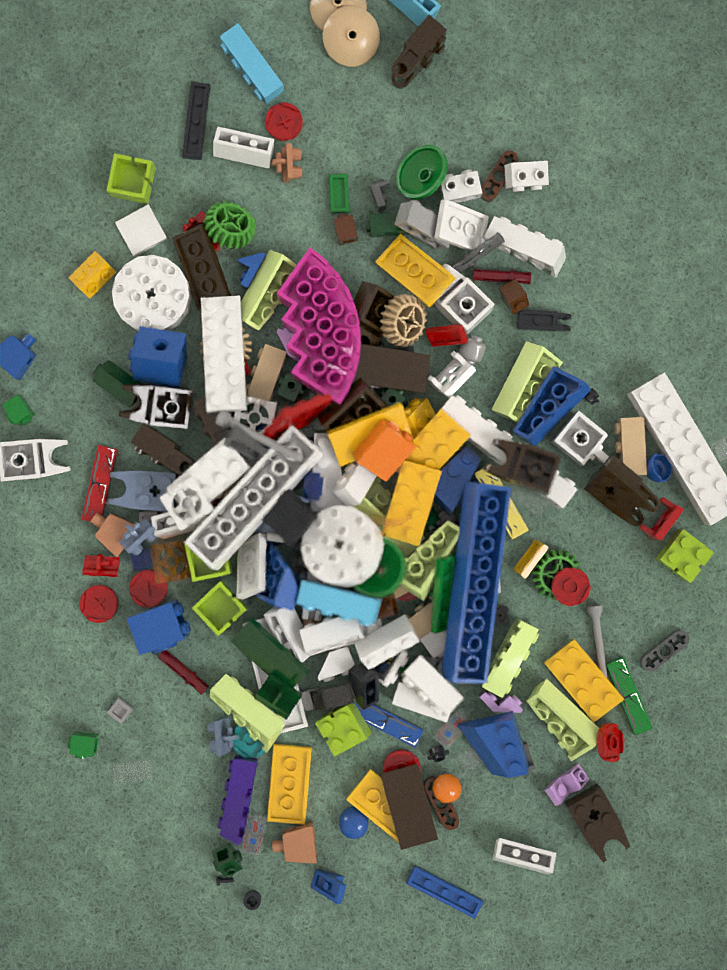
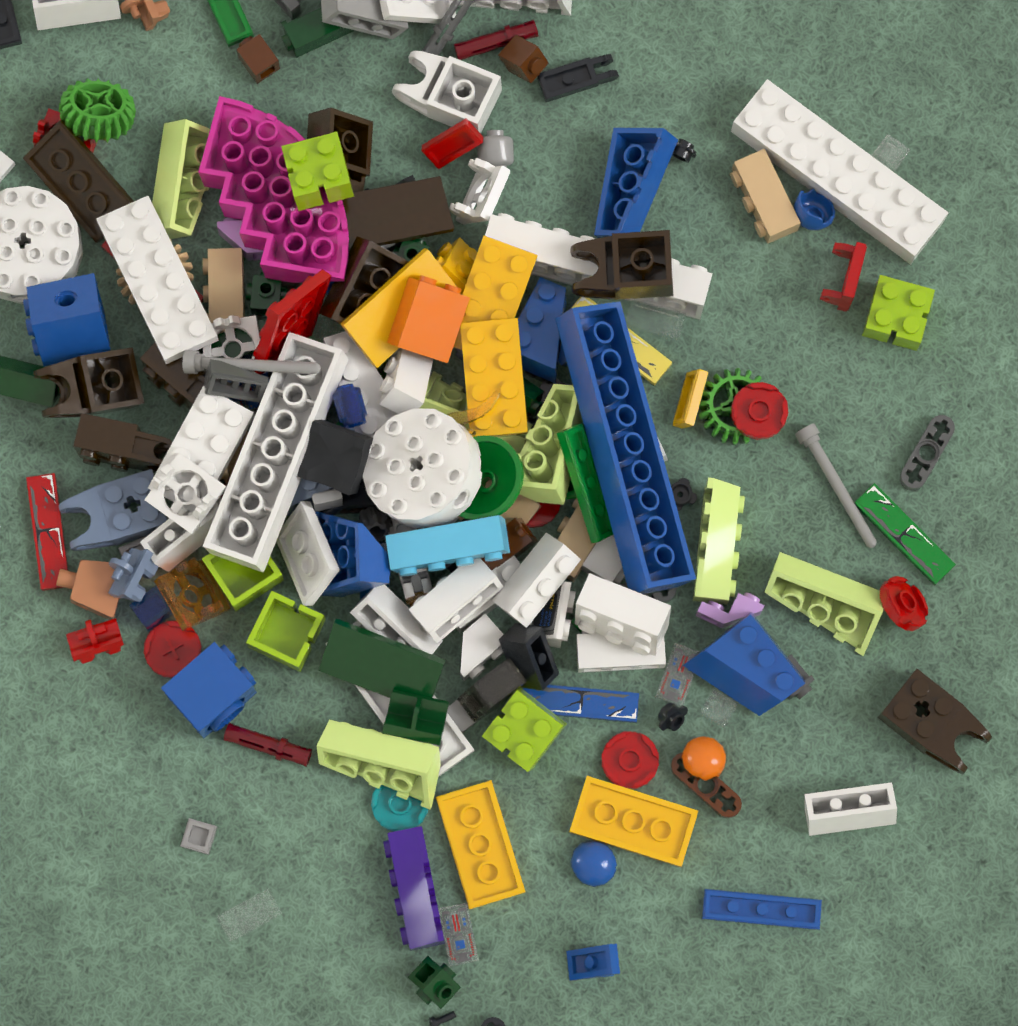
camera: 30 degrees left, 10 degrees down
(83, 744) = (164, 903): green brick -> none
(99, 603) = (110, 698): red tile -> none
(223, 736) = (361, 810): sand blue hips -> none
(253, 264) = (146, 152): blue slope -> none
(298, 844) = (526, 921): nougat torso -> none
(352, 323) = (314, 165): none -> lime piece
(403, 332) = (385, 145): tan gear -> none
(409, 806) = (661, 803): dark brown tile -> none
(415, 270) = (374, 74): yellow plate -> none
(524, 381) = (583, 164): yellowish green wedge -> none
(566, 783) = (869, 688): lavender slope -> none
(584, 680) = (833, 535): yellow plate -> none
(591, 436) = (707, 213): white hinge -> none
(621, 491) = (774, 257): dark brown brick -> none

